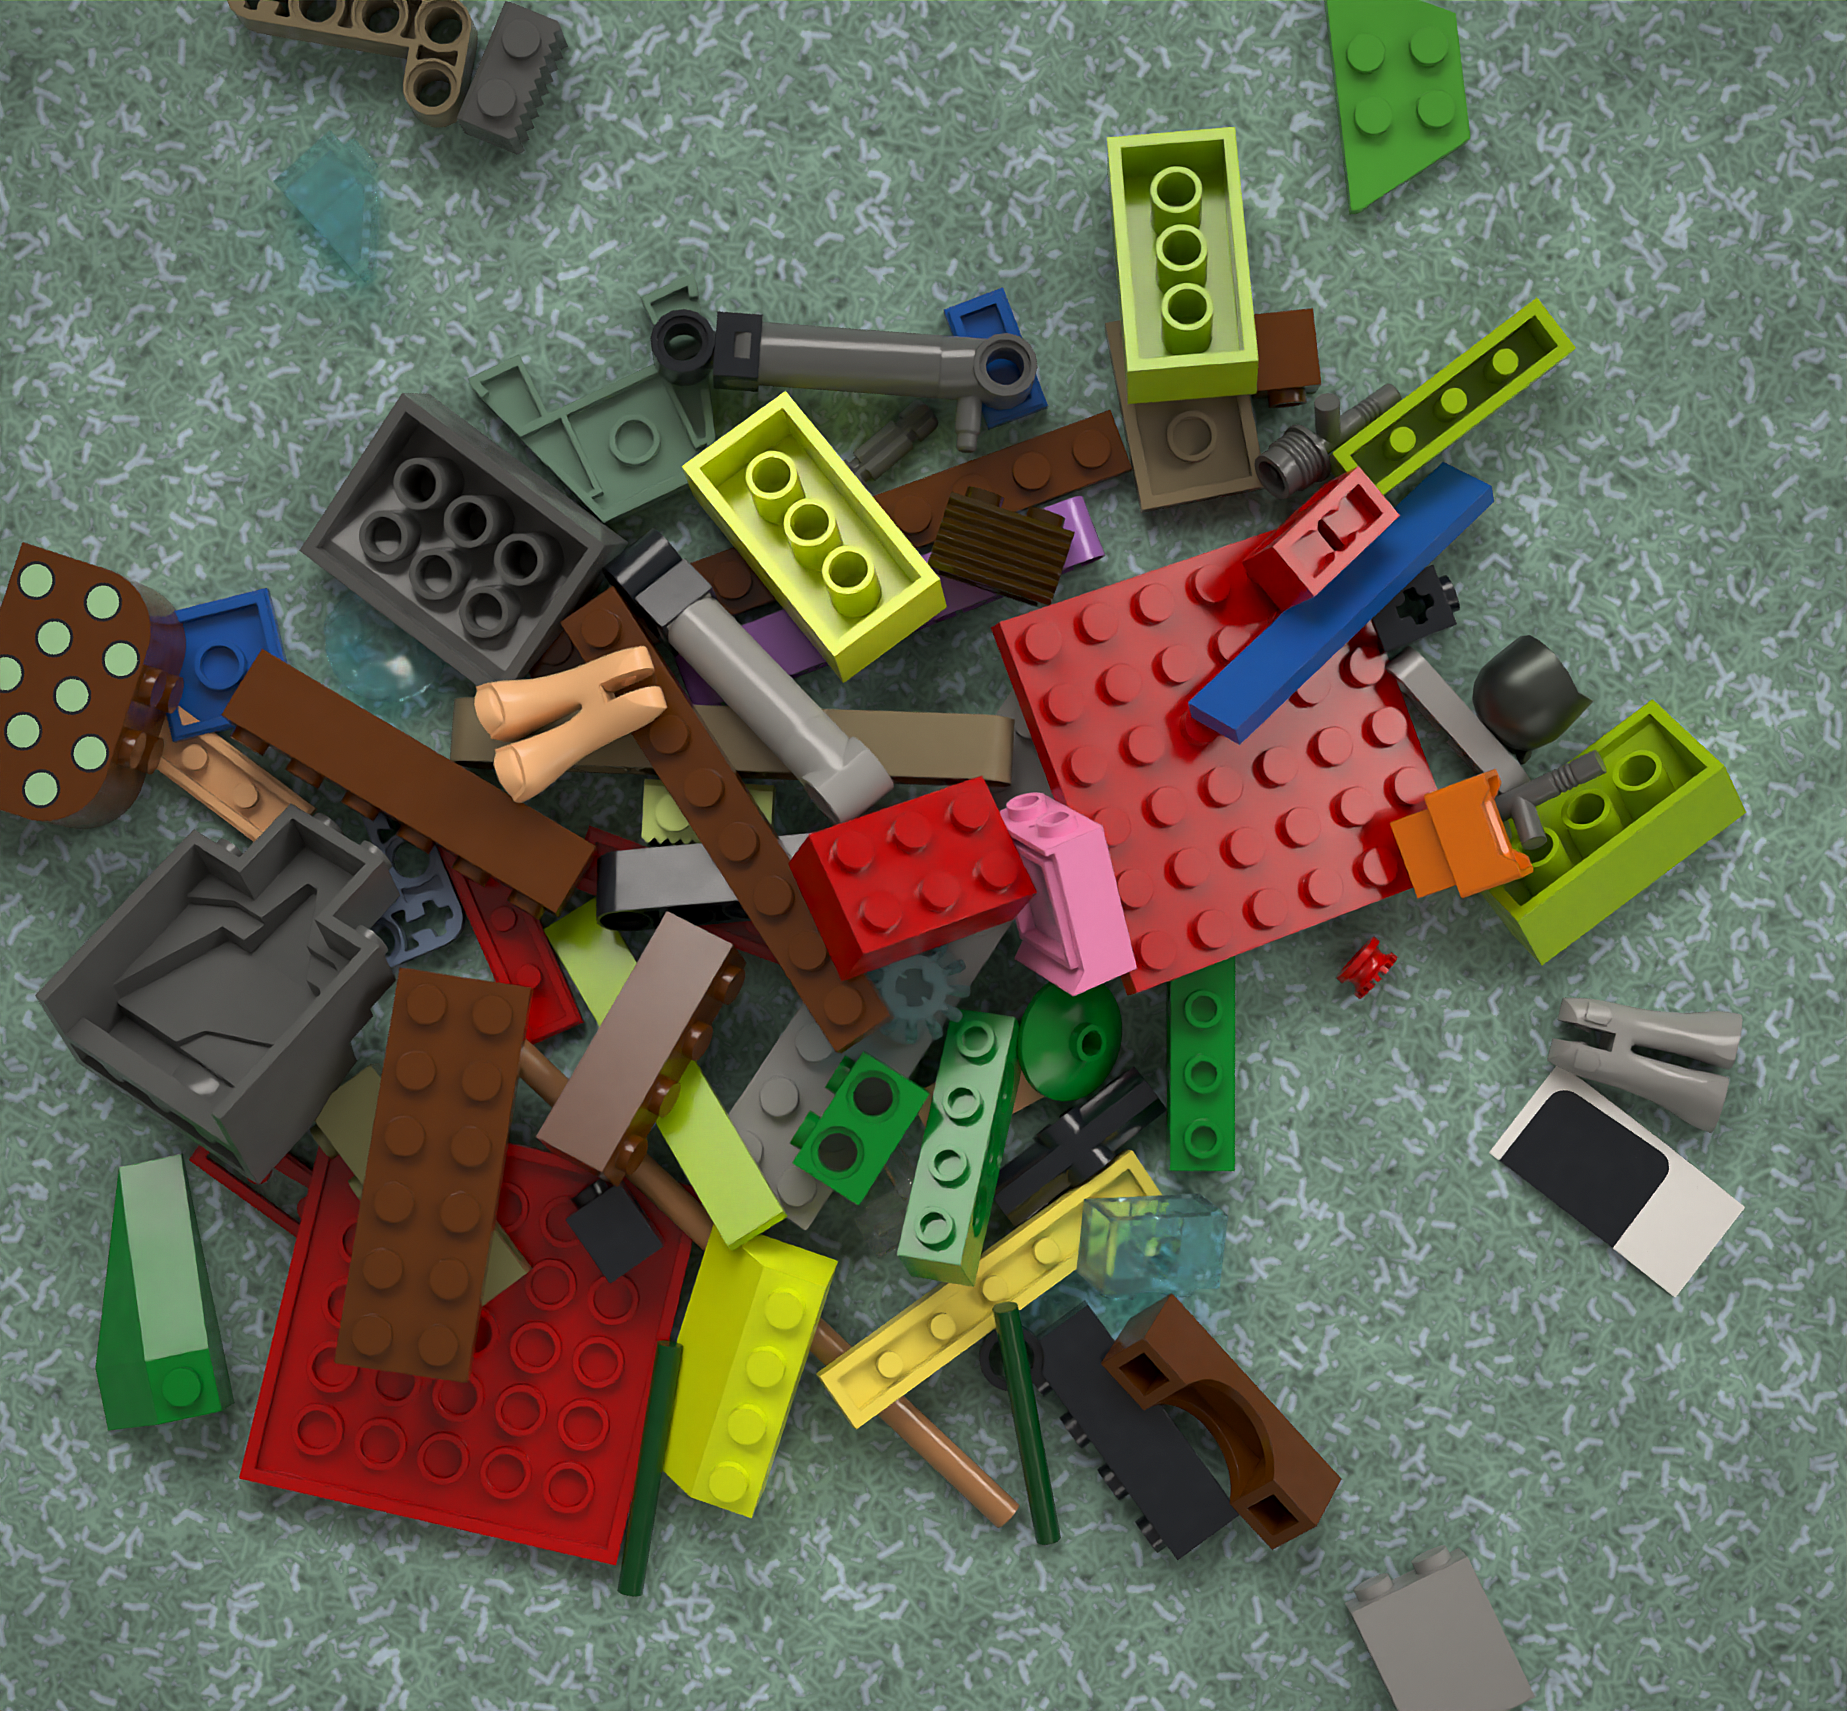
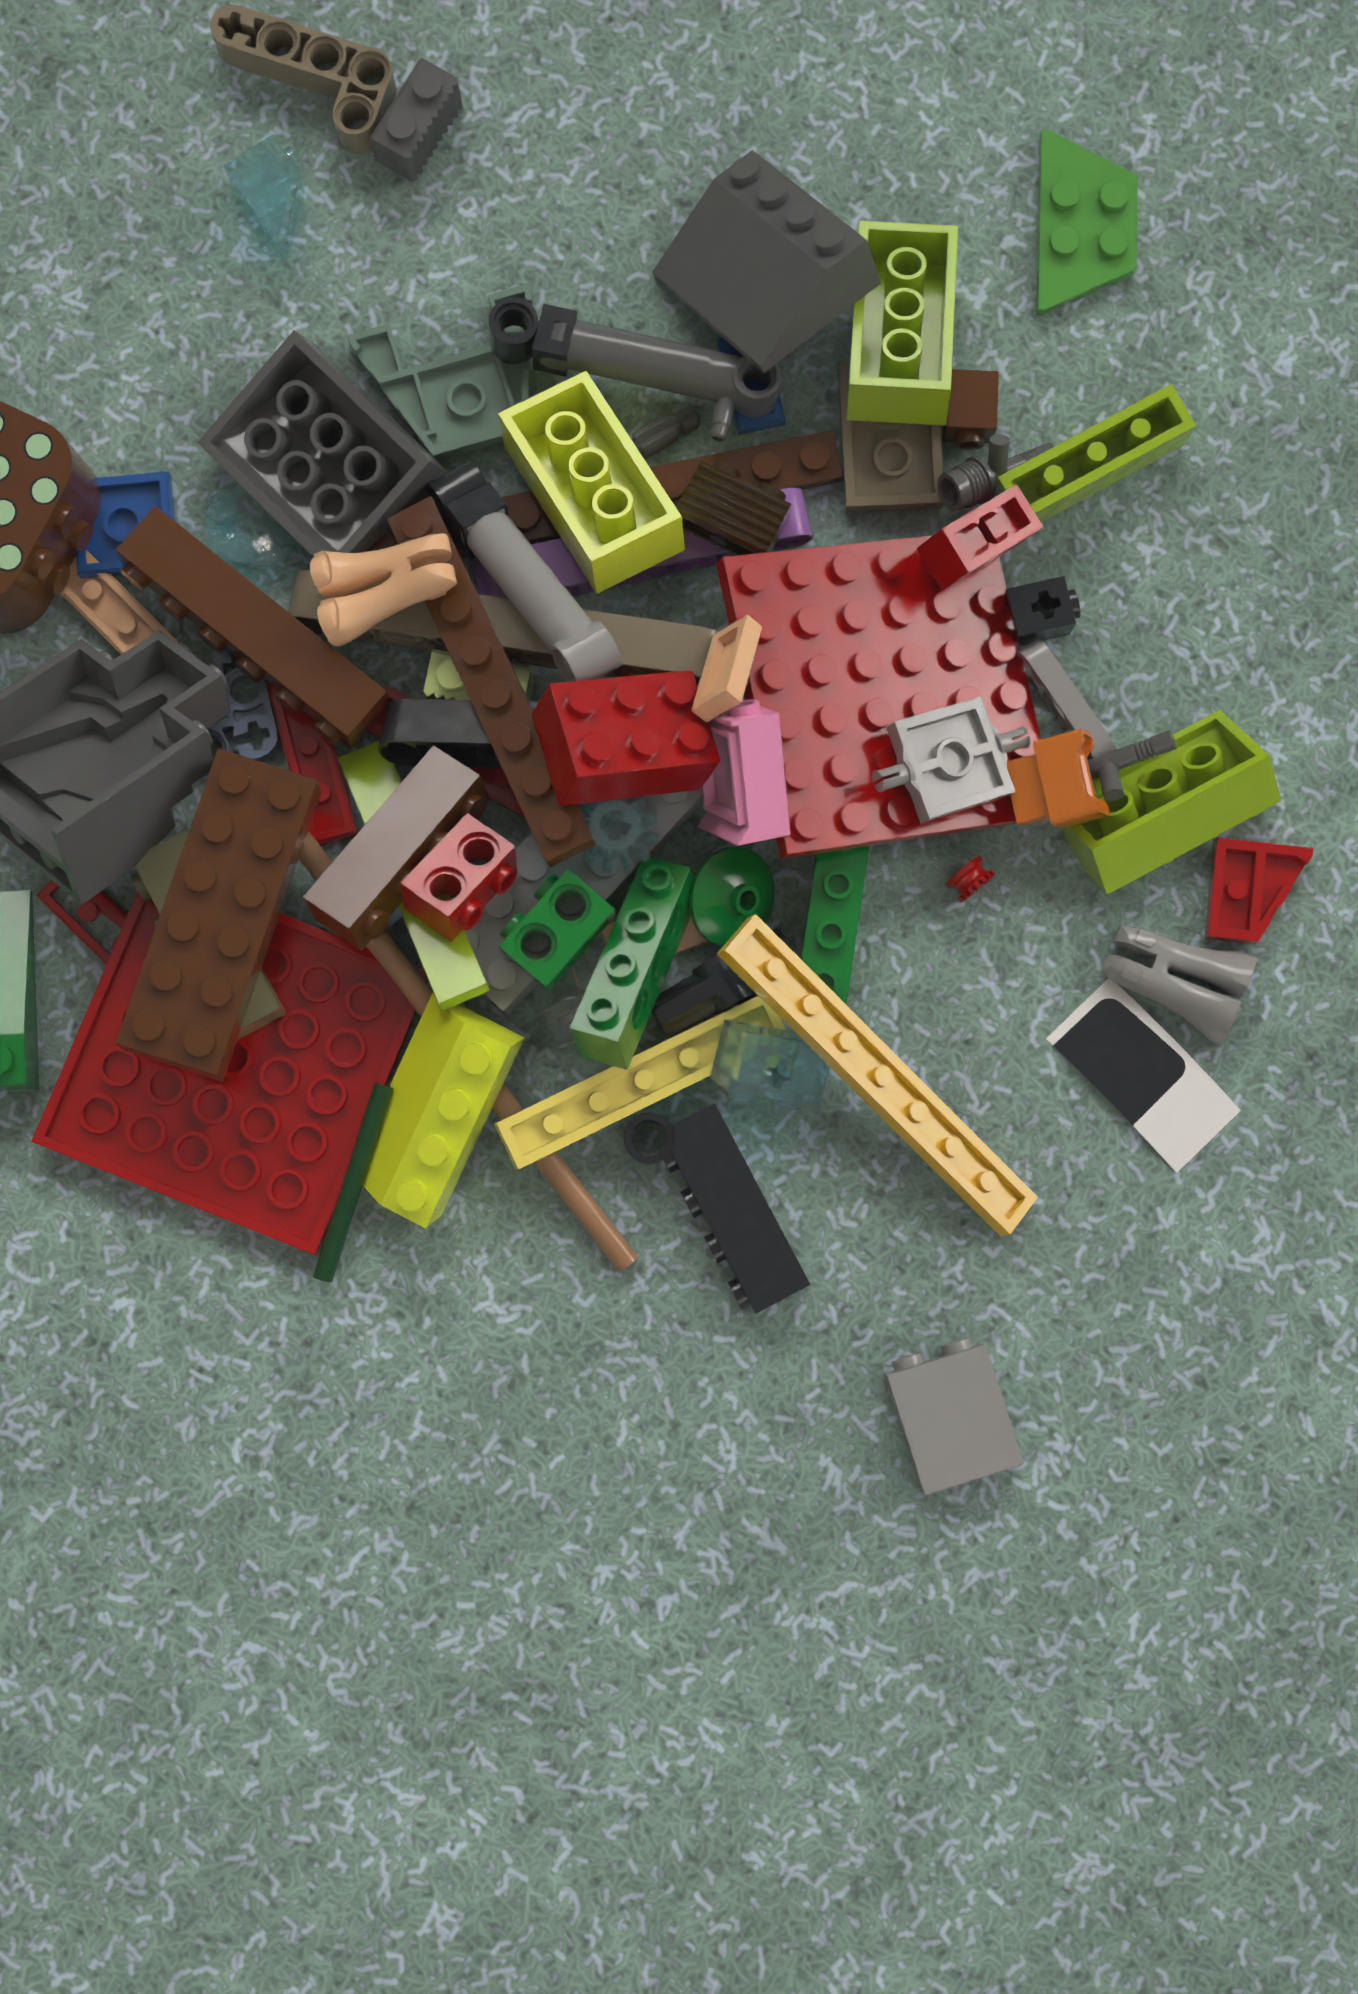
camera: 10 degrees right, 5 degrees down
(613, 1228) = (354, 987): black brick -> none
(713, 1075) = (450, 872): none -> red brick
(992, 214) = (765, 262): none -> dark grey slope
(1026, 1422) = (653, 1189): dark green bar -> none
(1027, 772) = (727, 668): none -> light nougat tile
(1273, 1471) = (841, 1254): reddish brown arch -> none
(1286, 1243) = (877, 1075): none -> yellow plate
(1319, 627) = (988, 591): blue tile -> none
(1324, 833) = (951, 759): none -> light grey plate
(1527, 697) = (1124, 688): pearl dark grey helmet -> none
(1719, 924) = (1249, 886): none -> red wing

